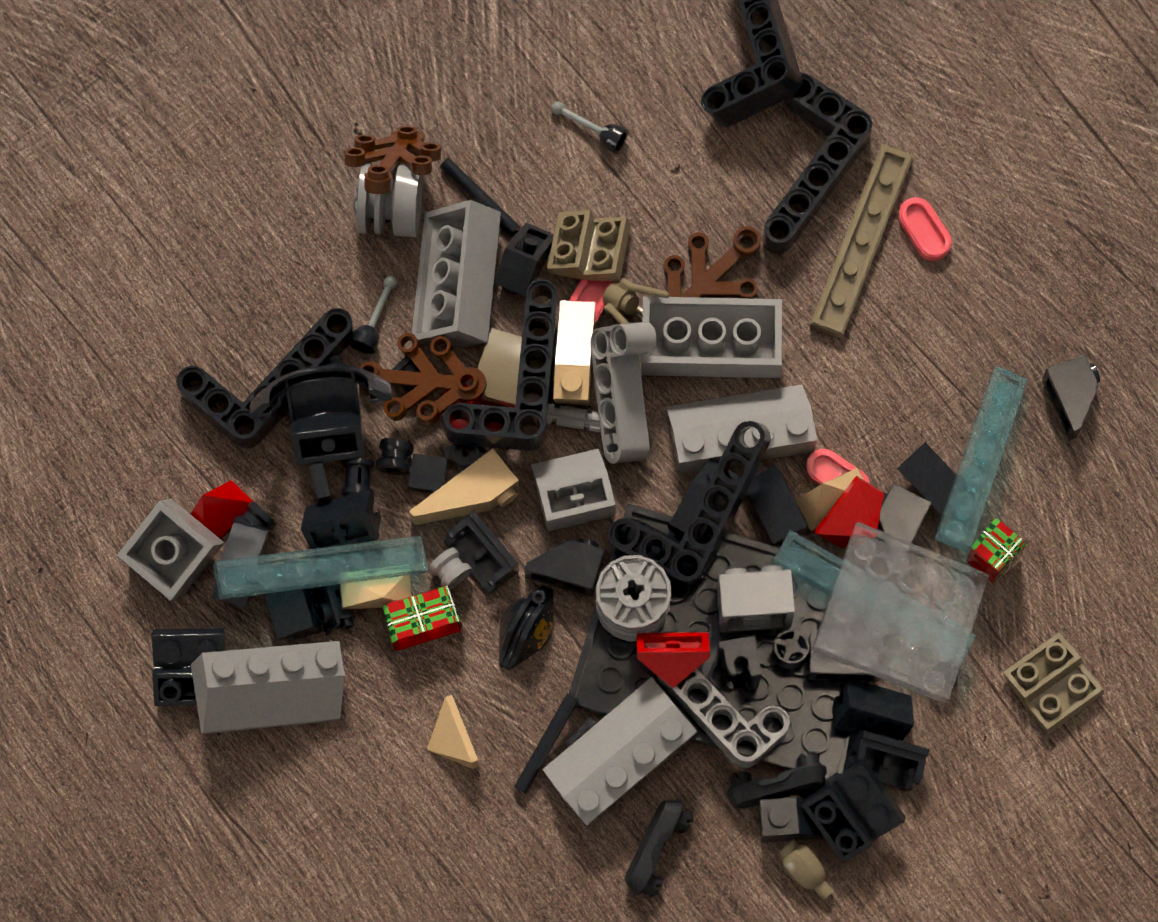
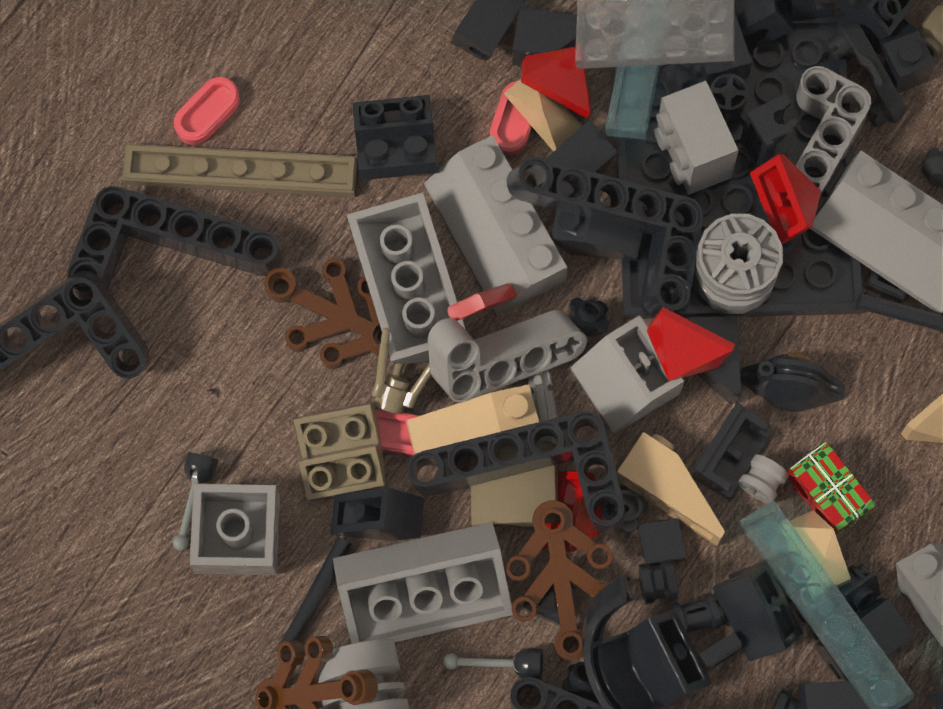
camera: 105 degrees left, 0 degrees up
(548, 145) = (235, 529): none -> light grey brick
(571, 526) = (685, 346): none -> red slope
(628, 474) = (589, 316): none -> black plate
(668, 382) = (481, 302): none -> red tile
(845, 367) = (394, 137): none -> black brick

